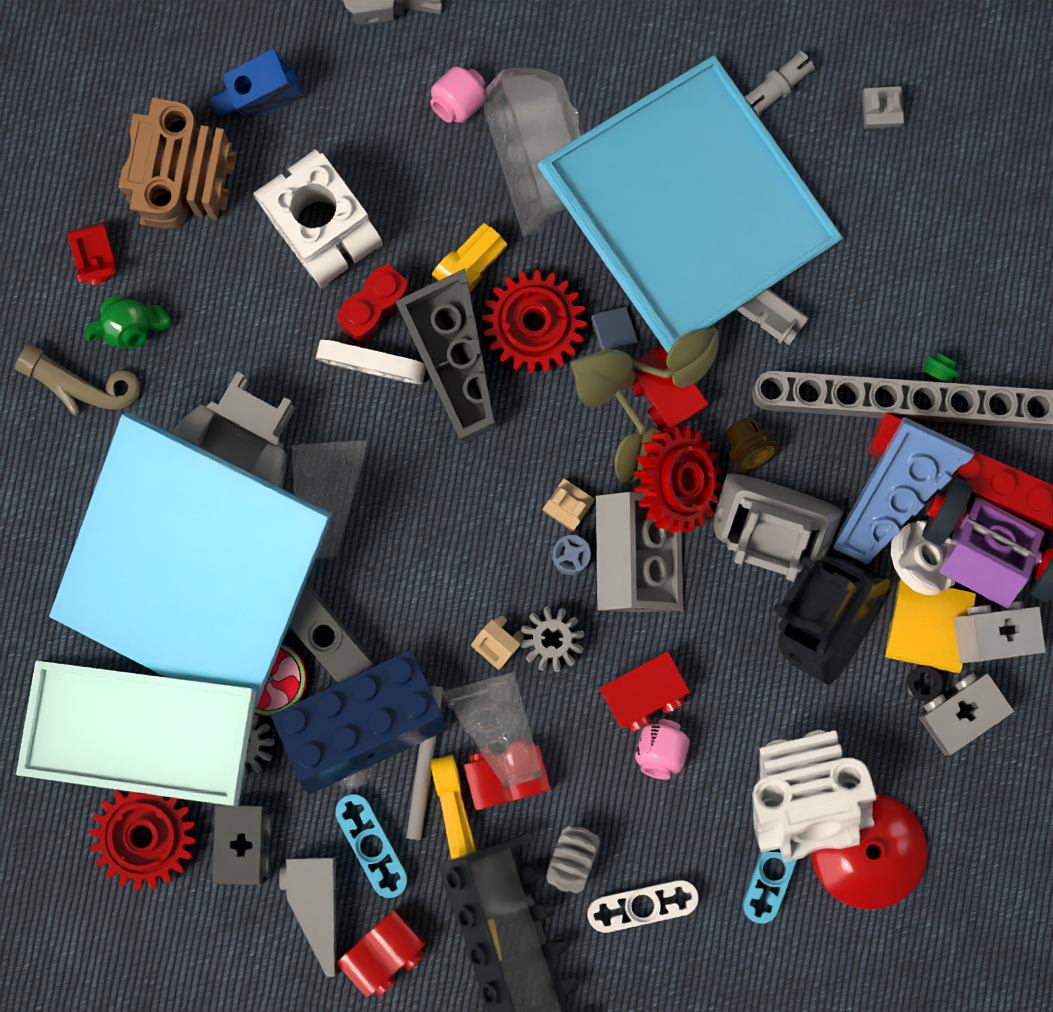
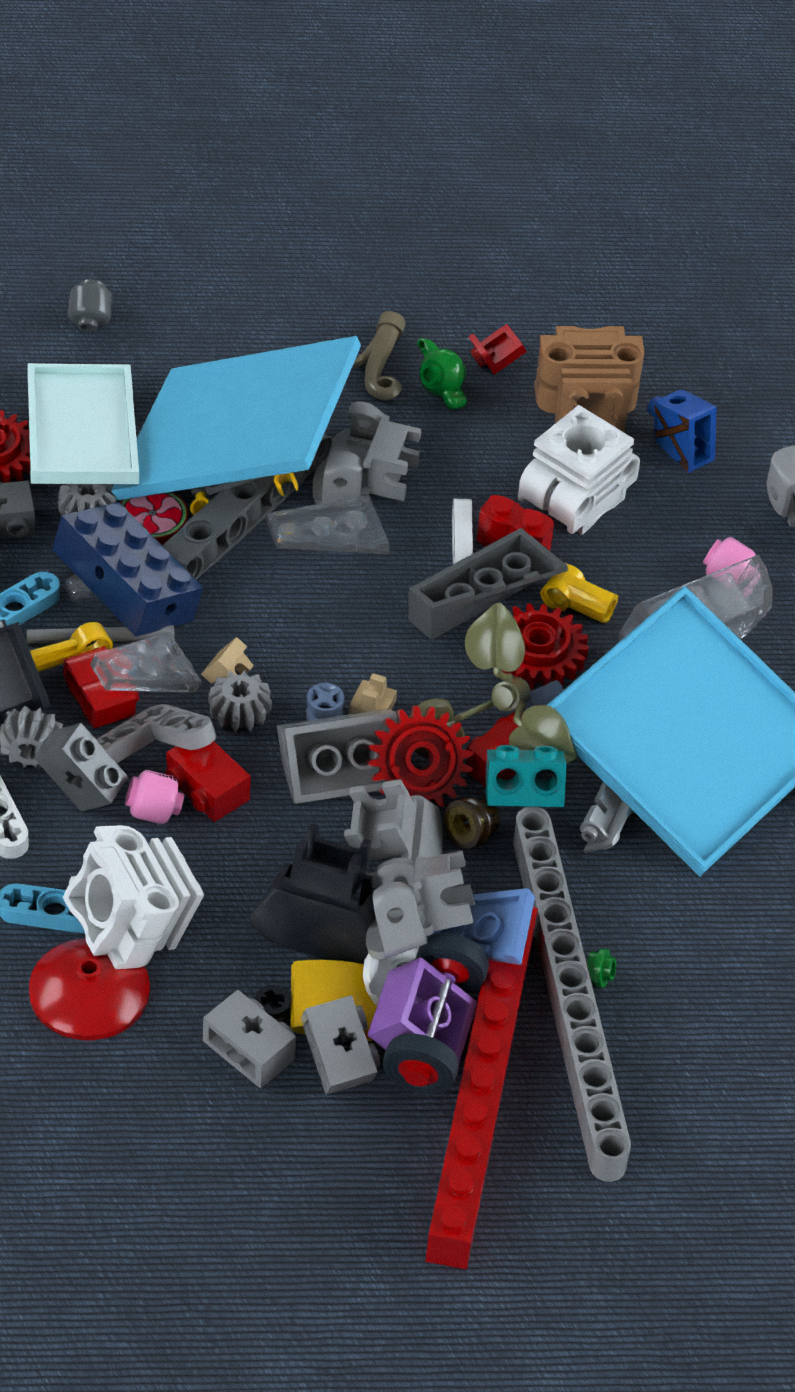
camera: 75 degrees right, 35 degrees down
(577, 729) = (158, 723): none -> light grey beam
(631, 818) = (81, 767): none -> dark grey brick
(729, 383) = (524, 787): none -> teal brick
(896, 535) = (416, 909): none -> light grey piece

